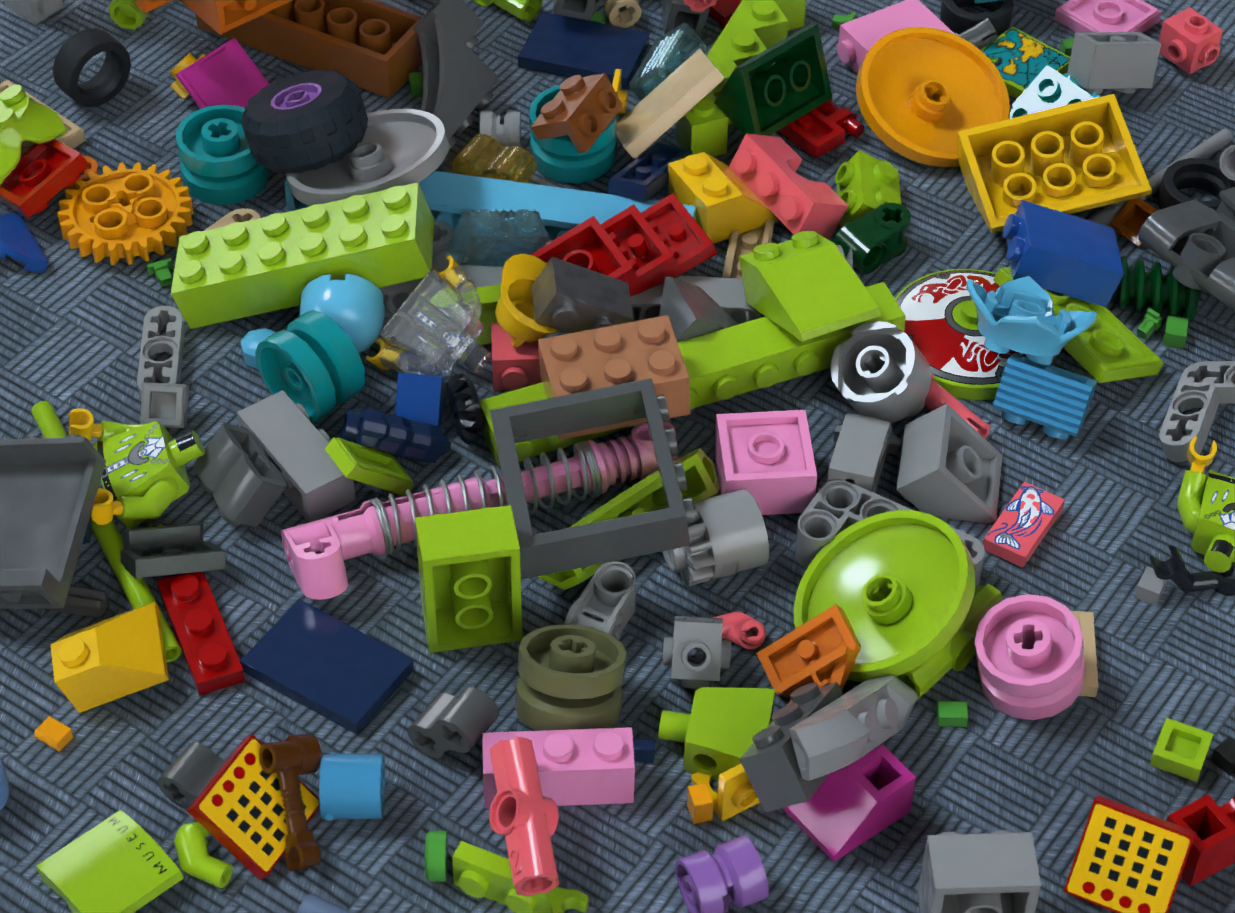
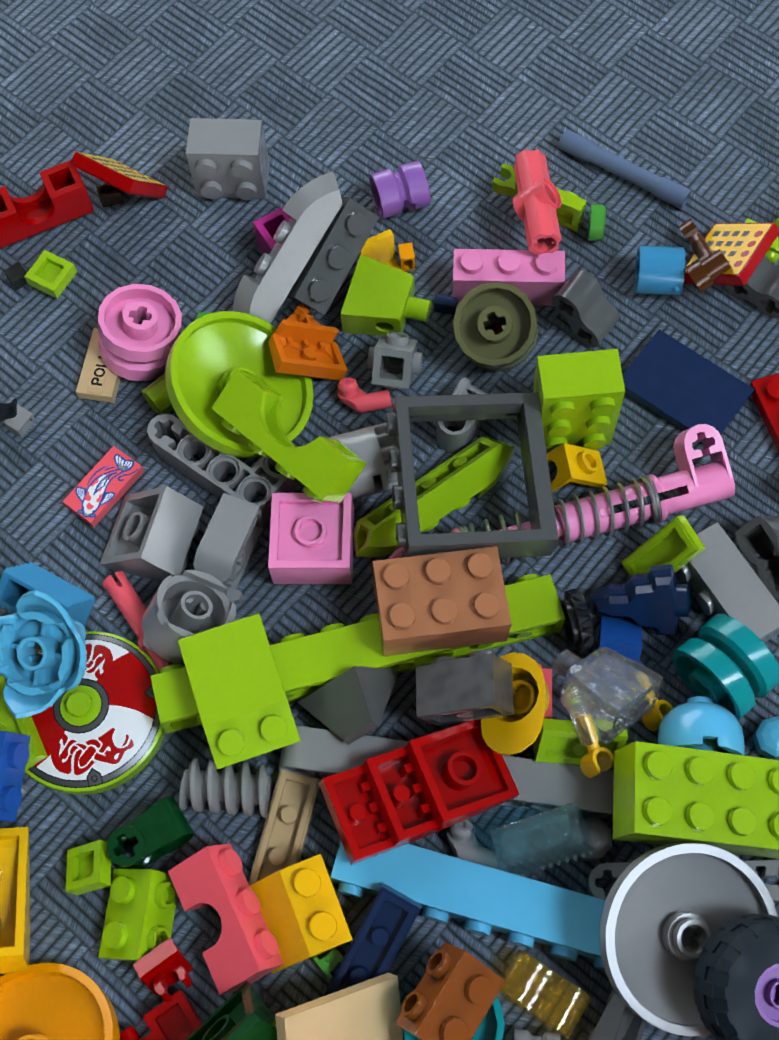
camera: 170 degrees left, 20 degrees up
(770, 477) = (254, 410): none -> lime arch
(831, 158) = (163, 968): none -> red tile
(927, 217) = (88, 868): none -> lime plate

